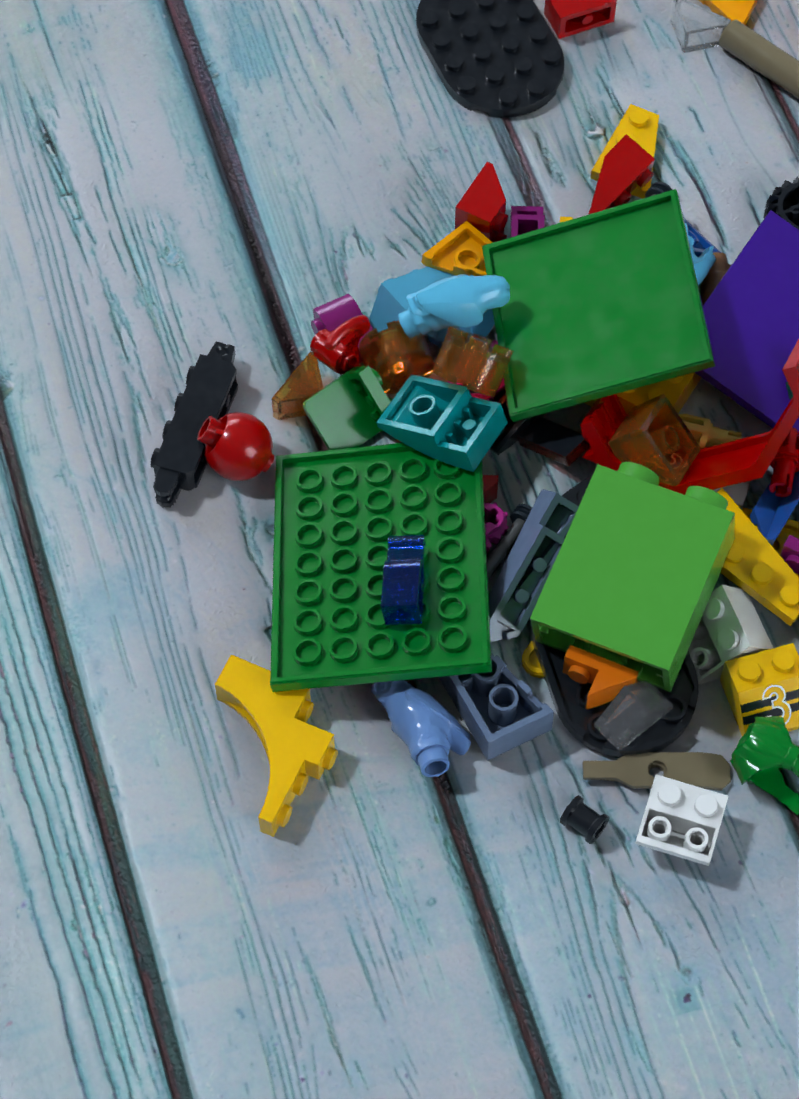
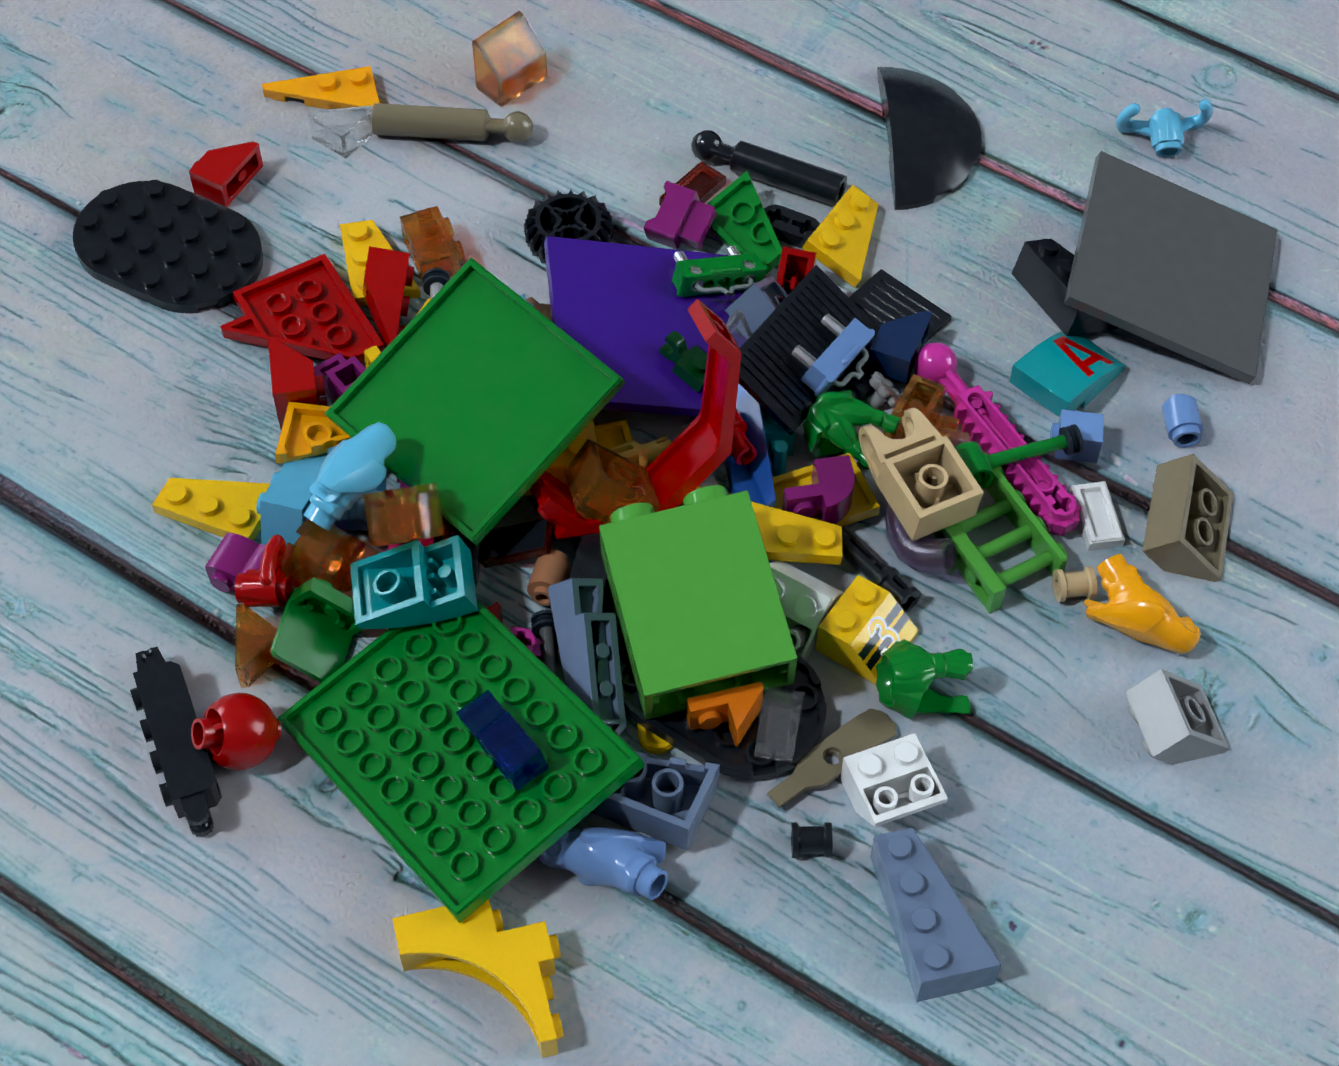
camera: 40 degrees left, 5 degrees down
(358, 265) = (212, 505): none -> yellow wing
(544, 159) = (304, 310): none -> red wing
(558, 479) = (546, 572): none -> nougat brick
(615, 953) = (932, 927): none -> sand blue wedge
(687, 161) = (431, 241): none -> clear orange brick
(702, 405) = (613, 434): none -> yellow tile

